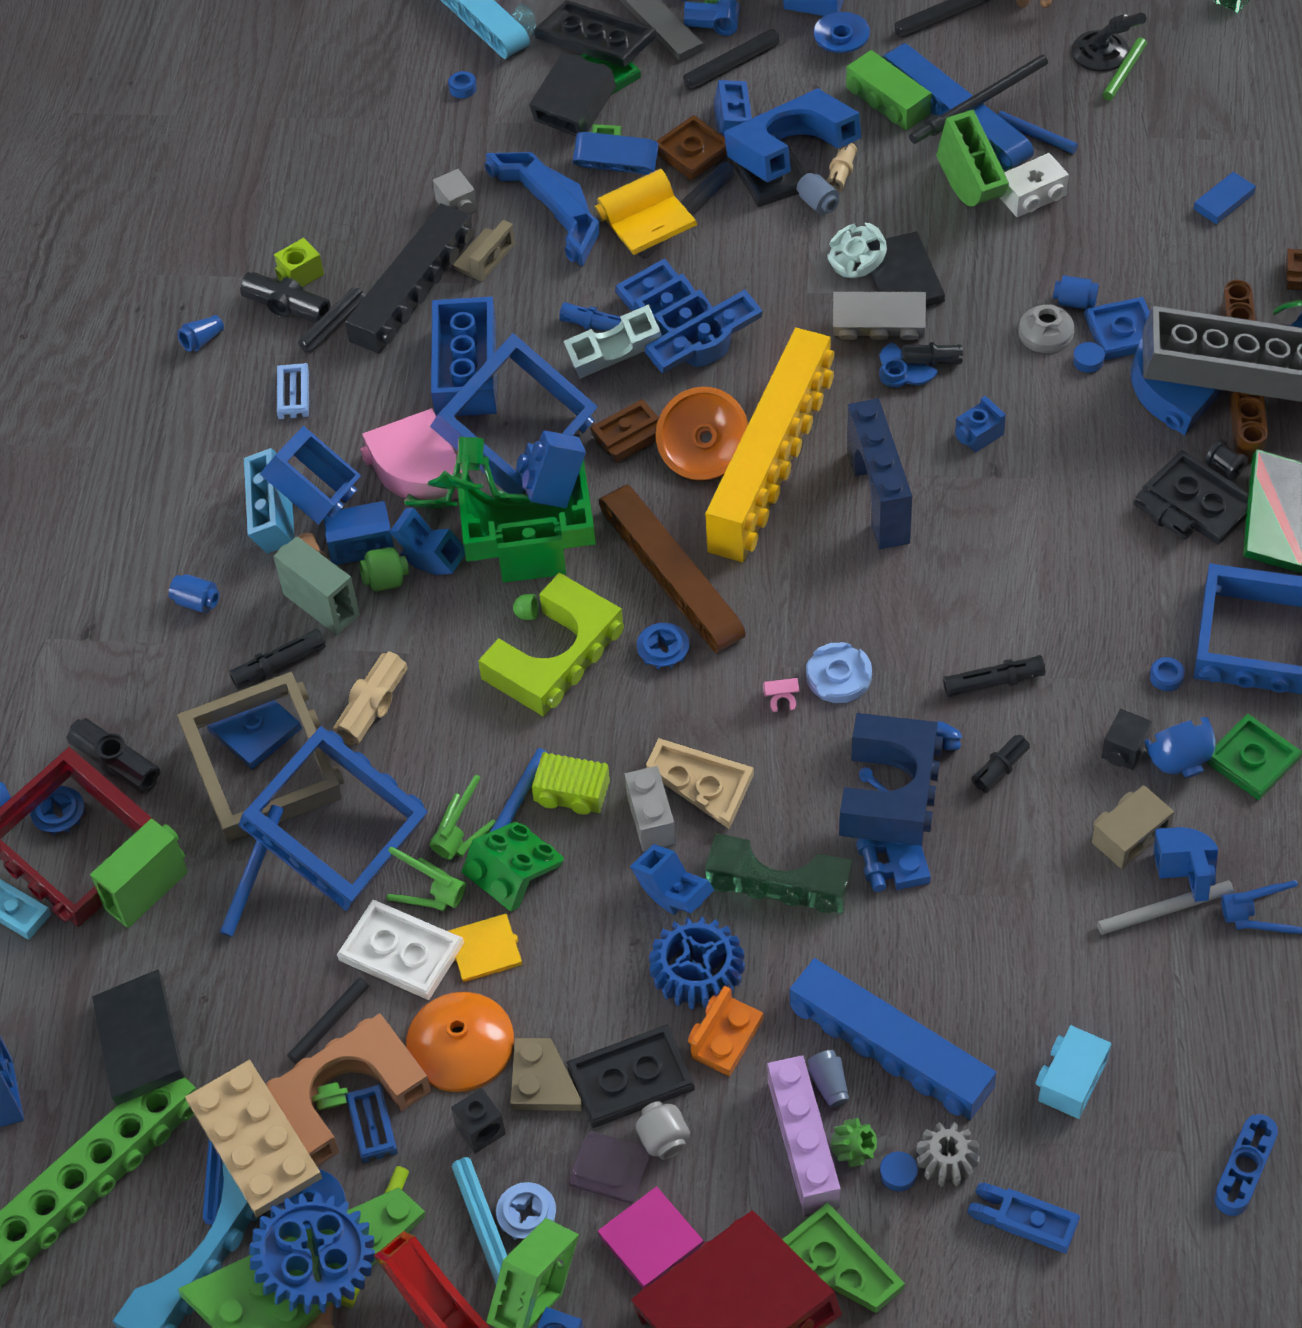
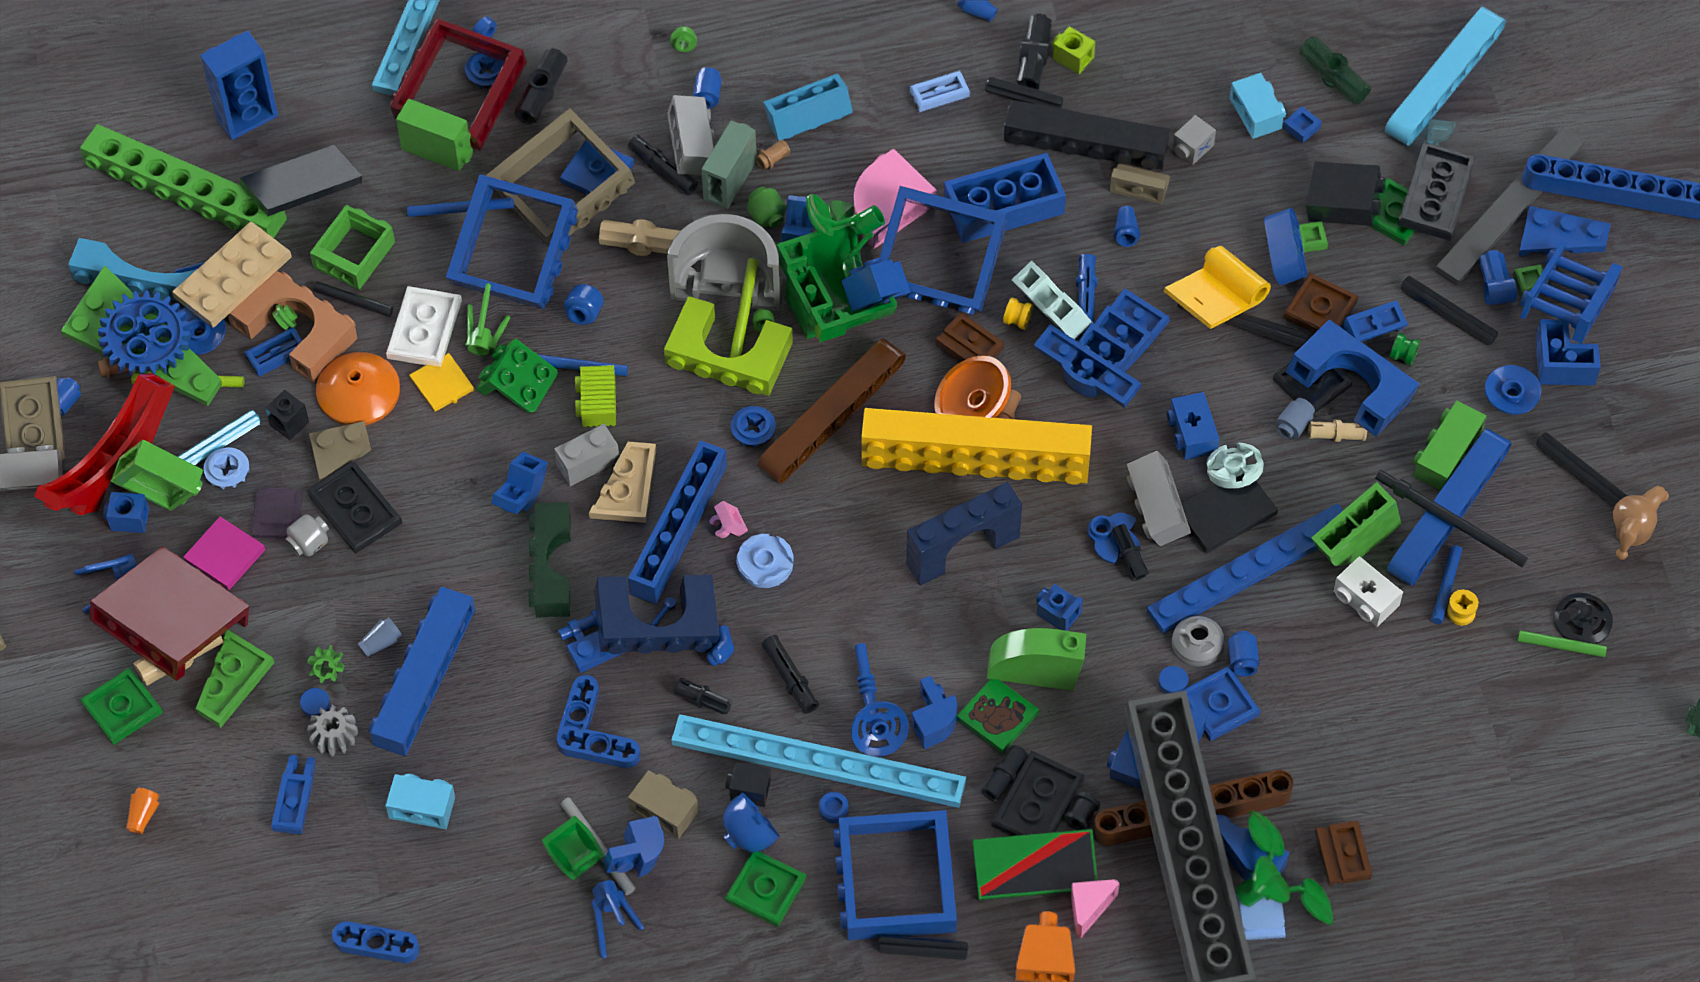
camera: 70 degrees right, 5 degrees up
(114, 602) = (683, 39): none -> bright green plate
(256, 616) = (690, 133): none -> light grey brick
(275, 1026) = (340, 268): none -> bright green window
(321, 462) = (859, 107): blue window -> none
(357, 531) = (801, 176): blue bracket -> none
(420, 72) = (1335, 70): none -> clear green piece
(438, 135) = (1257, 105): none -> medium azure brick
(440, 772) = (583, 304): none -> blue head
(447, 616) = (724, 246): none -> light grey piece
(448, 838) = (527, 328): bright green plant -> none
(462, 84) = (1338, 108): blue tile -> none
(472, 112) = (1302, 124): none -> blue plate
(516, 614) = (744, 307): none -> lime bar
(537, 271) = (1126, 227): none -> blue cone
(557, 192) = (1223, 220): blue helmet -> none
(609, 381) = (1018, 313): none -> yellow wheel
(704, 945) = (455, 533): blue gear -> none
(724, 1032) = (404, 558): orange bracket -> none
(767, 96) = (1405, 349): none -> green wheel
(772, 732) = (677, 522): none -> blue brick
(799, 270) = (1193, 426): none -> blue brick
(803, 1134) = (324, 627): lavender brick -> none
(976, 272) = (1240, 573): none -> blue plate
(1010, 894) = (580, 730): none -> blue beam
(1049, 442) = (1038, 657): none -> bright green brick
(1069, 122) = (1457, 612): none -> yellow wheel
(1084, 551) = (938, 718): none -> blue brick
(1084, 606) = (872, 717): none -> blue dish
(1090, 507) = (997, 715): none -> tile
(1107, 676) = (819, 761): none -> medium azure plate
(1174, 924) = (573, 848): none -> green piece
(1224, 197) = (1415, 760): blue tile -> none

